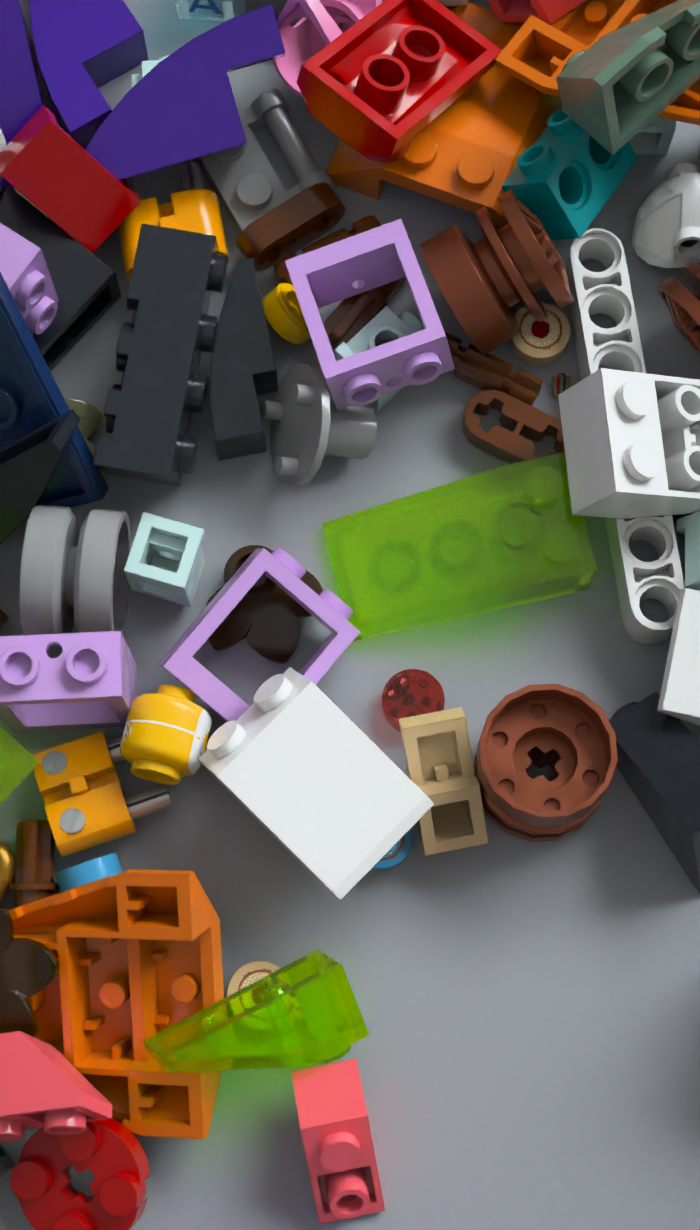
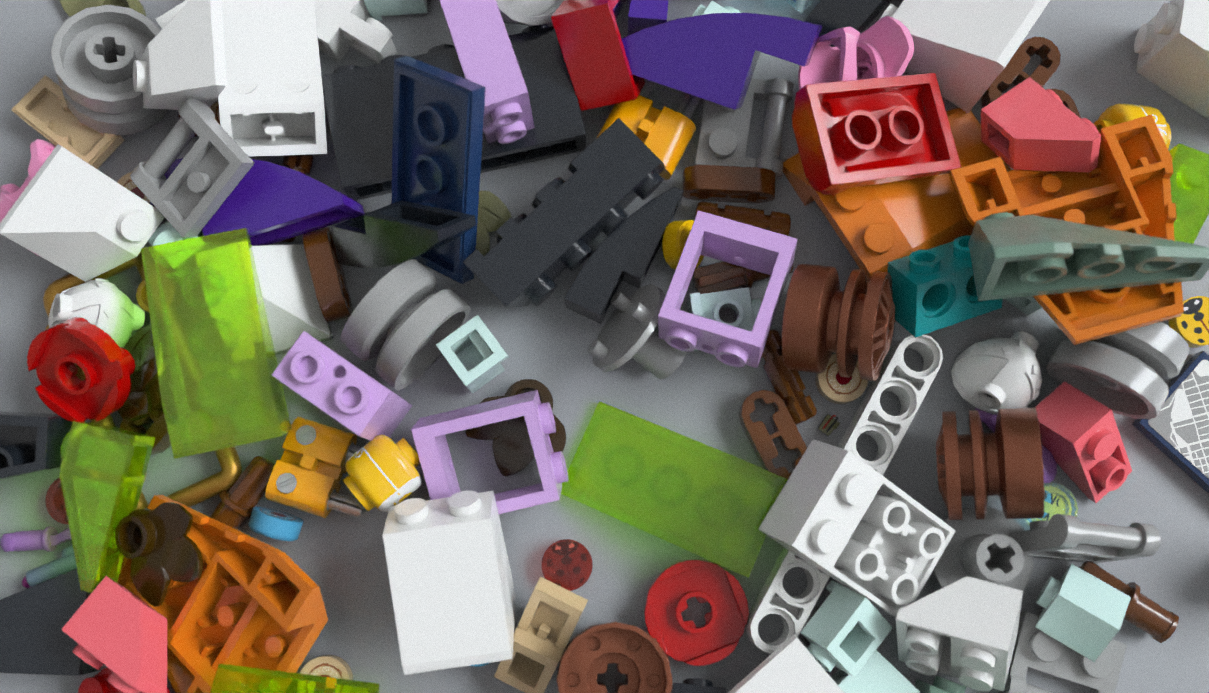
camera: 40 degrees right, 5 degrees up
(562, 616) = (722, 625): none -> red plate

